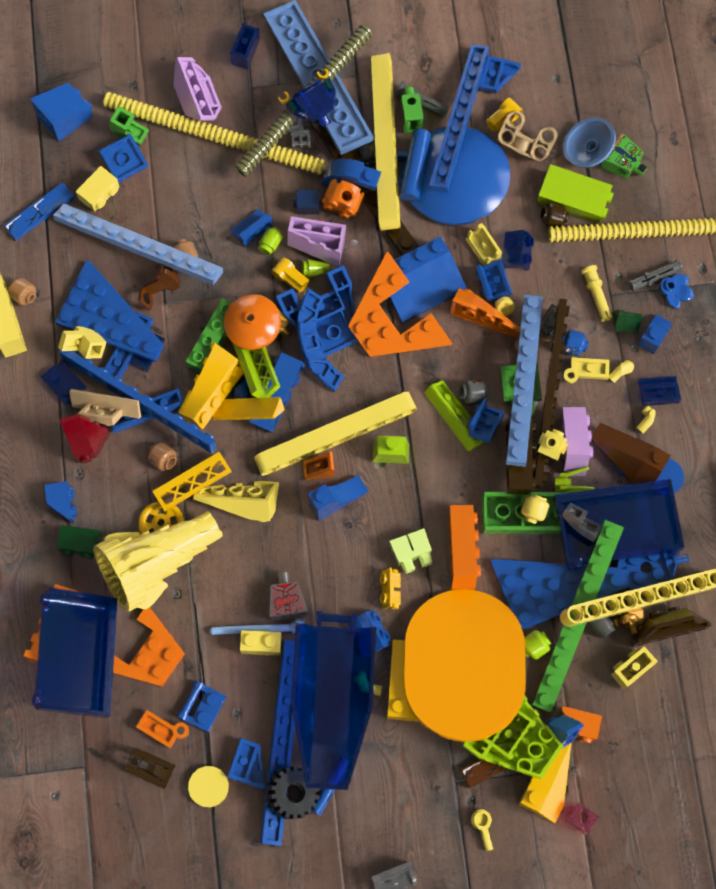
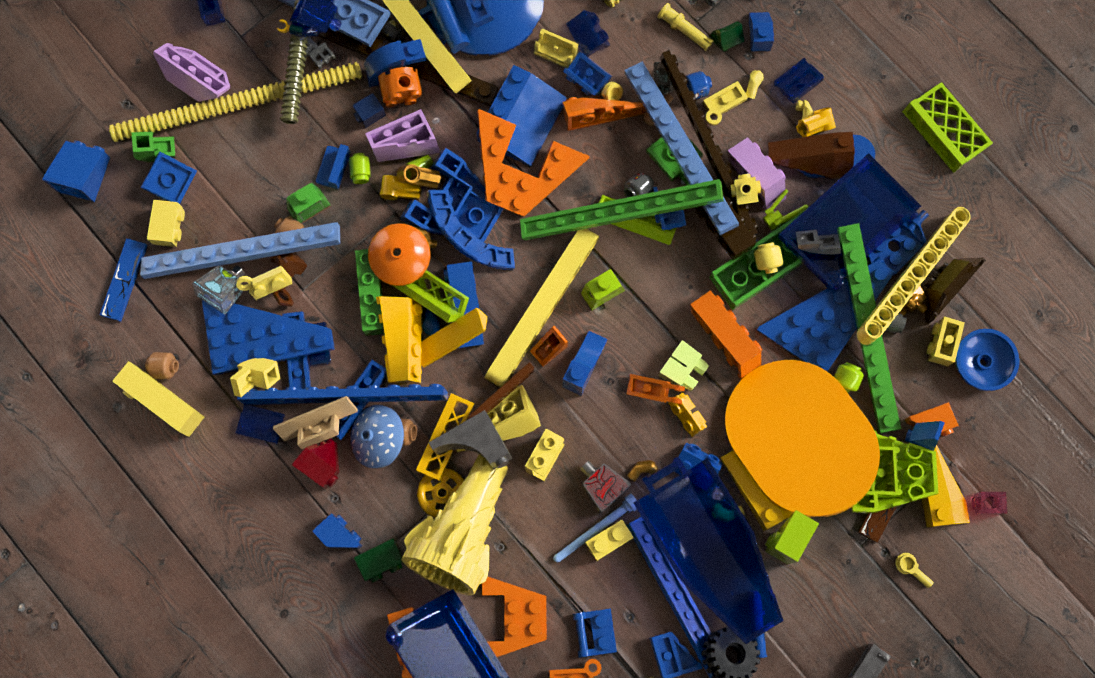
camera: 30 degrees left, 5 degrees up
(104, 261) = (219, 287): none -> clear torso
(139, 279) = (265, 283): none -> light yellow hinge
(141, 447) = (384, 437): none -> medium blue dish
(212, 240) = (306, 203): none -> bright green torso
(214, 493) = (476, 435): none -> flat silver arch
(256, 477) = (505, 390): none -> reddish brown tile
(256, 544) = (544, 455): none -> light yellow panel
(310, 274) = (419, 176): none -> pearl gold piece
(325, 605) = (642, 467): none -> pearl gold arm
(375, 550) = (652, 389): none -> orange hinge
(400, 733) = (791, 538): none -> lime wedge
(445, 397) = (622, 209): none -> bright green plate
(652, 432) = (820, 121): none -> yellow piece
(670, 700) = (1000, 359): none -> blue dish

